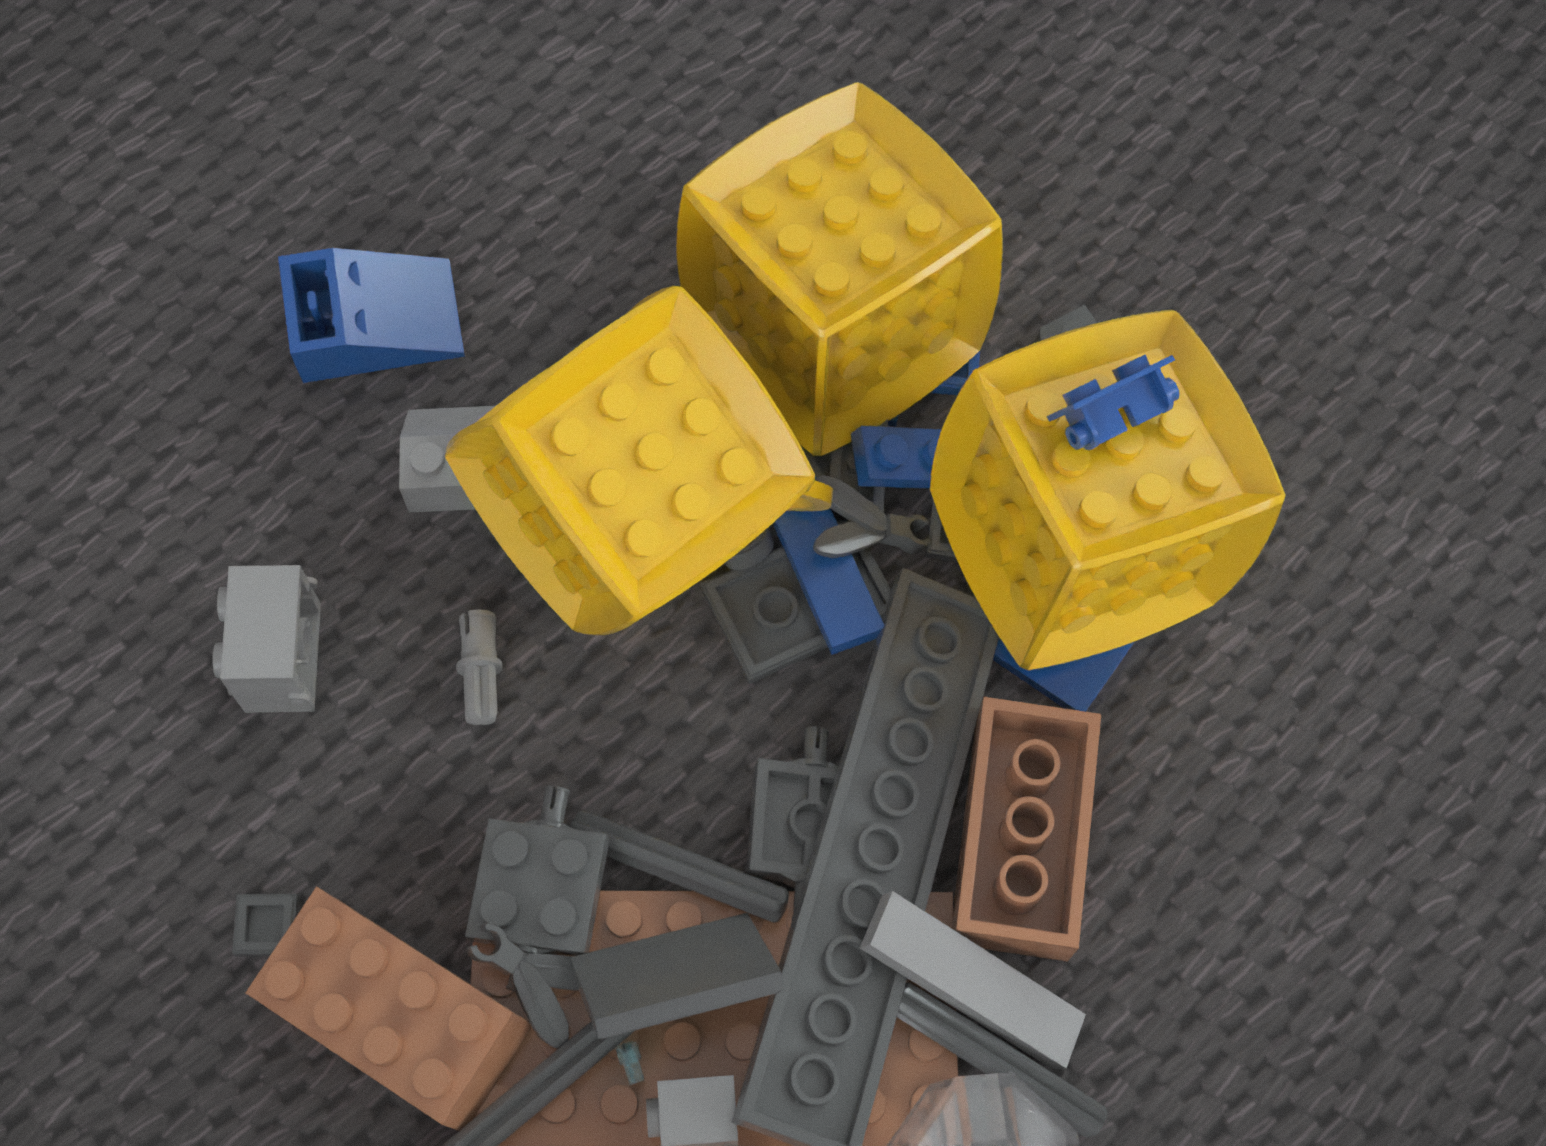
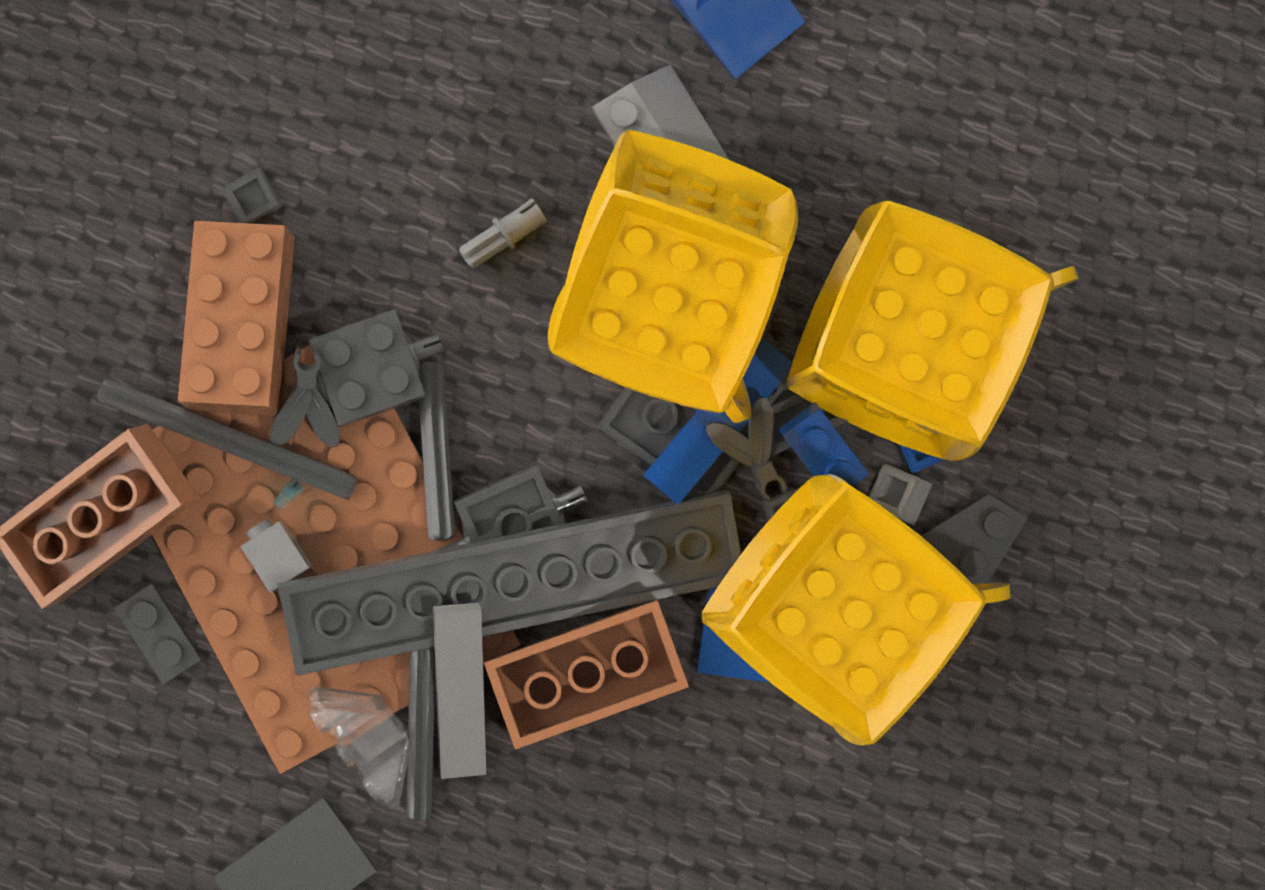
camera: 65 degrees right, 20 degrees up
(269, 638) = (435, 83): light grey brick -> none
(675, 975) = (352, 495): dark grey tile -> none
(1095, 412) = (891, 602): blue hinge -> none

